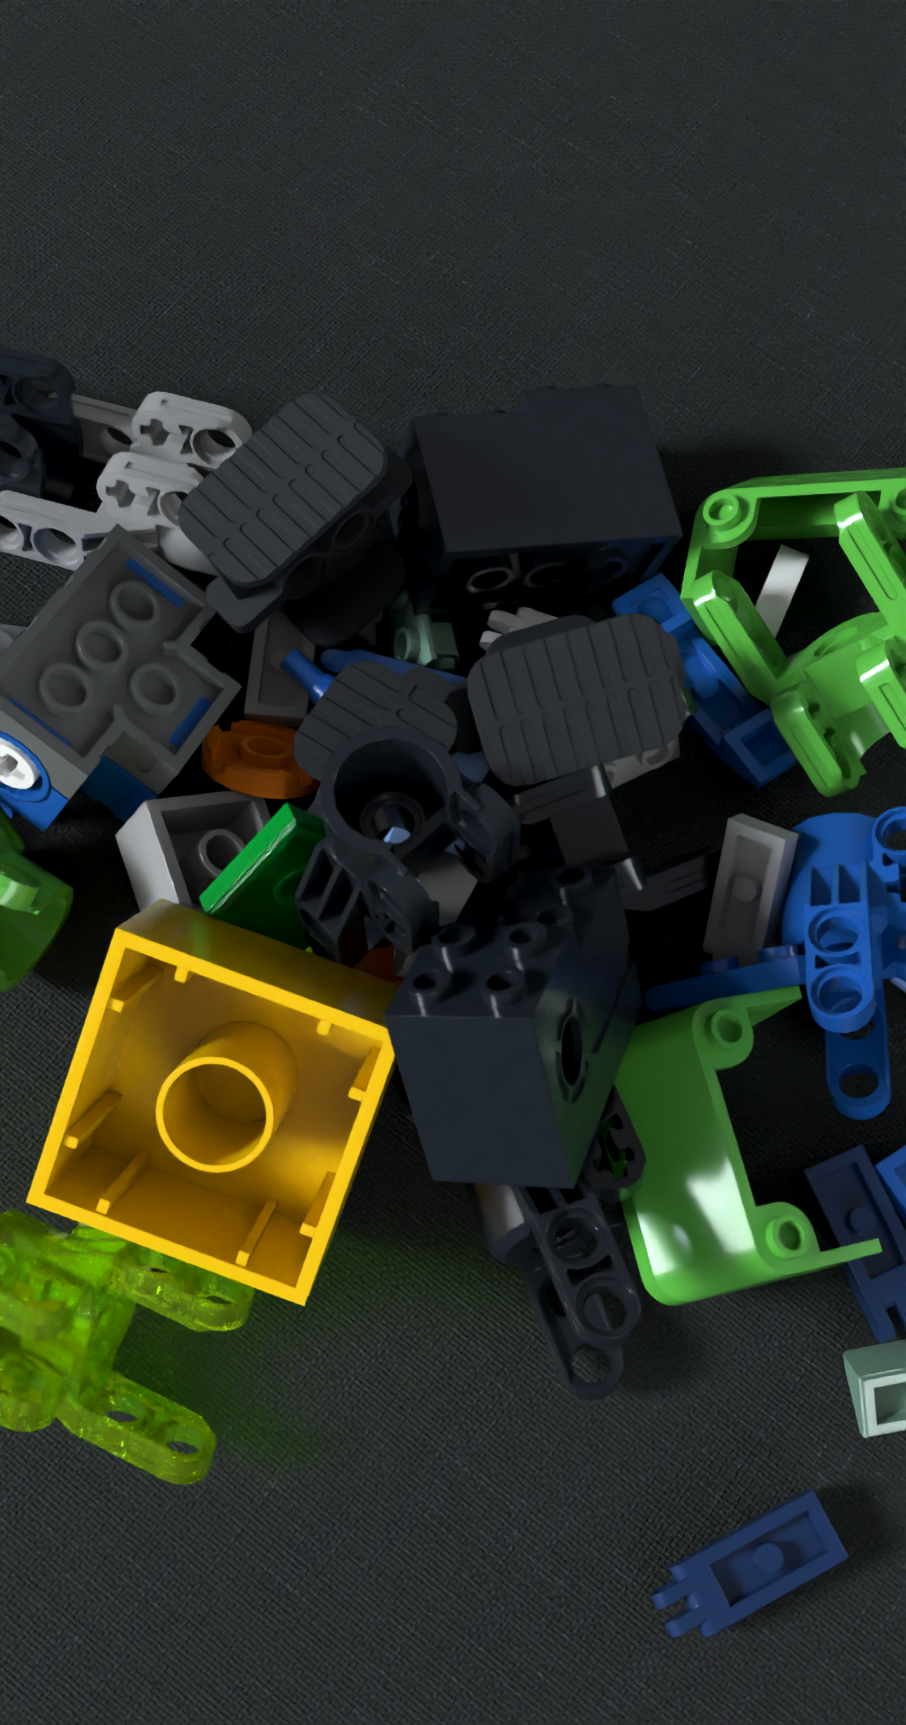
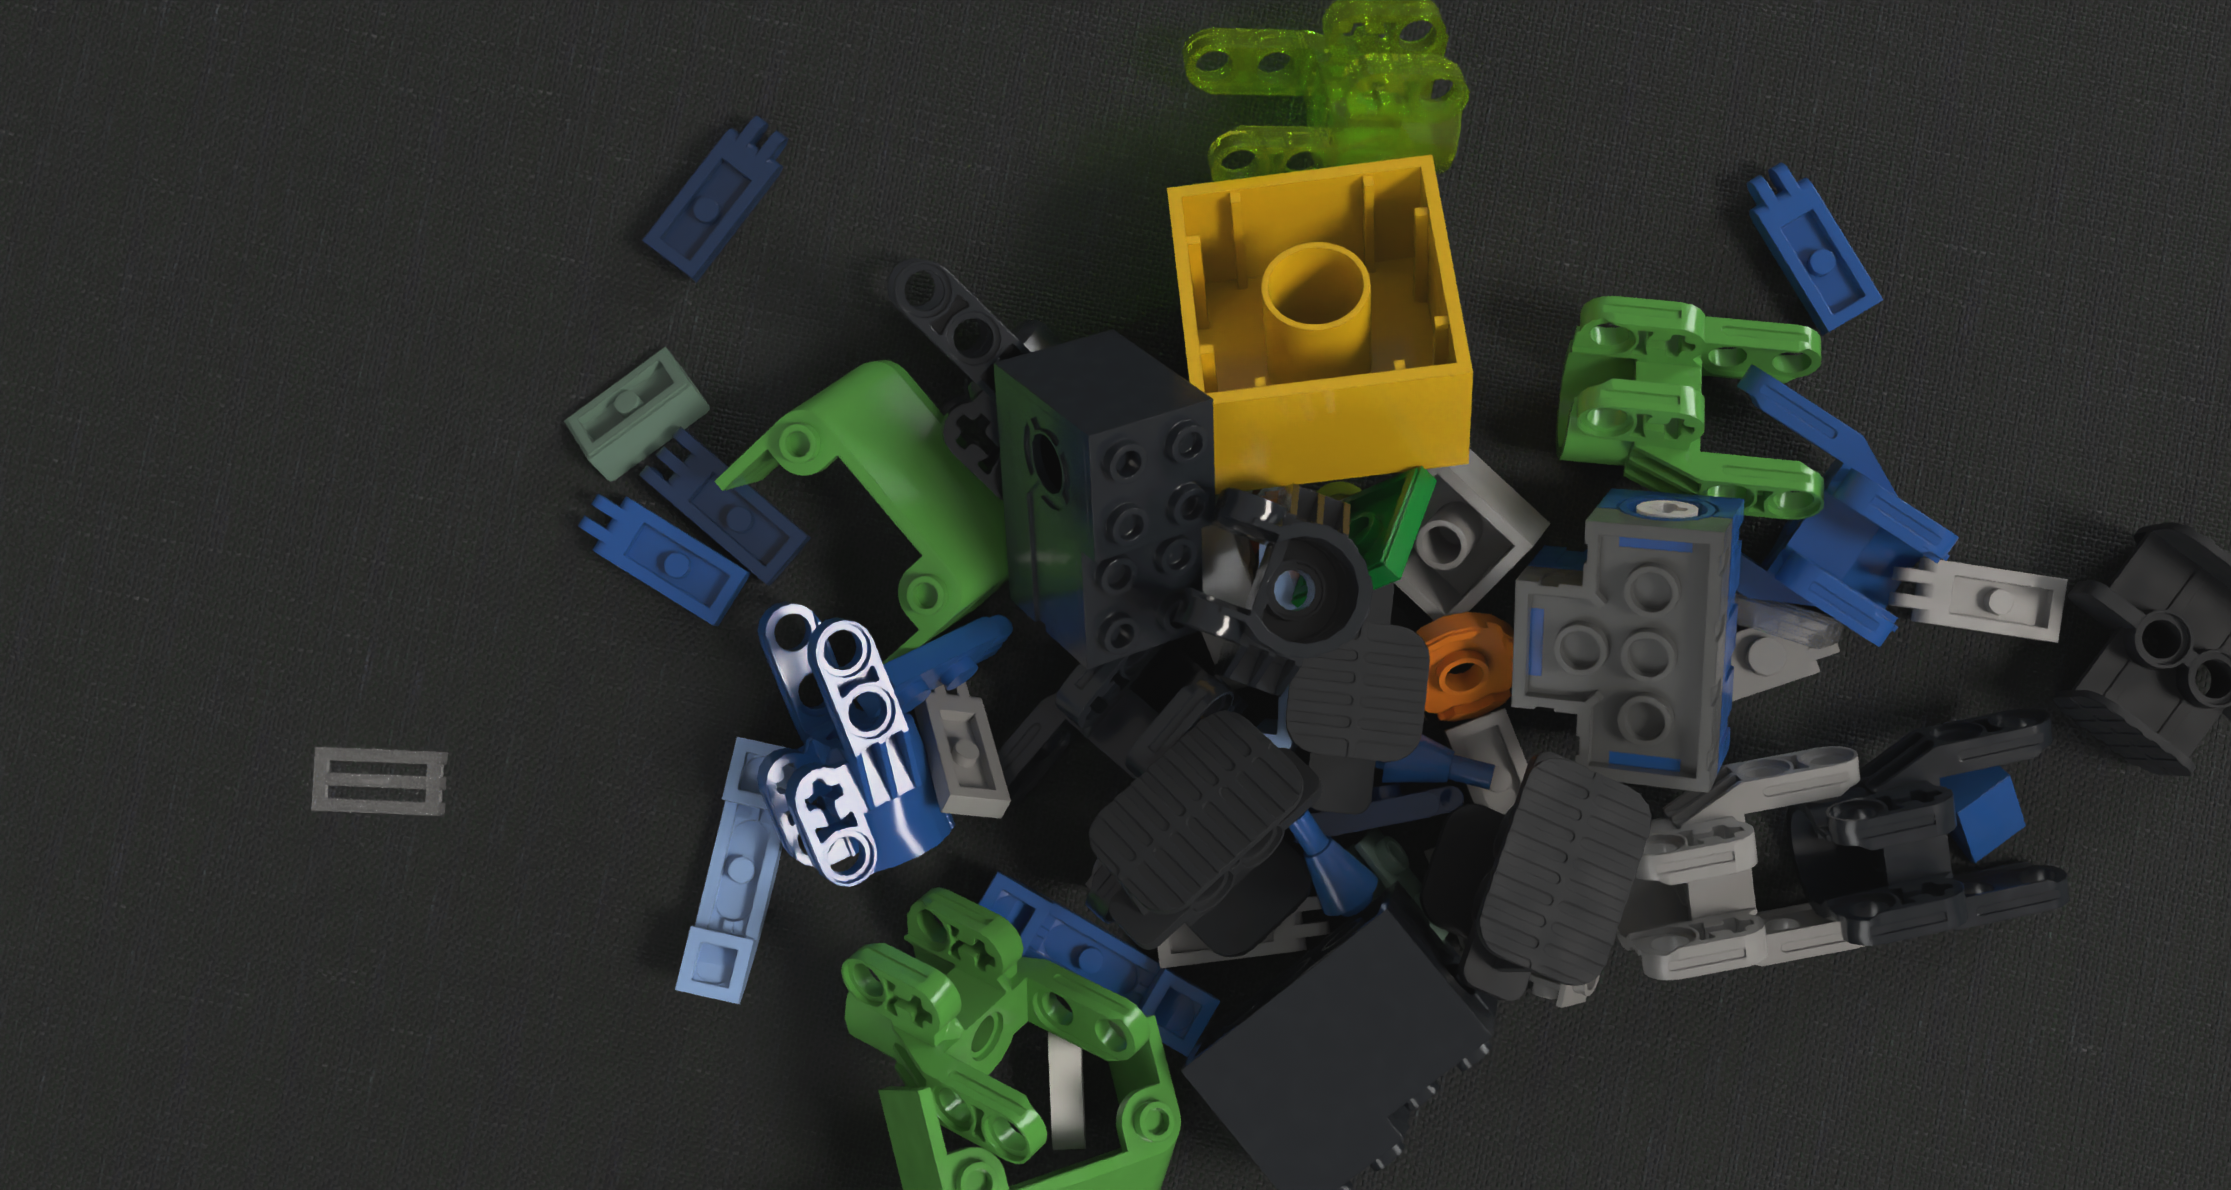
camera: 170 degrees right, 15 degrees up
(462, 635) = (1338, 877): none -> blue cone

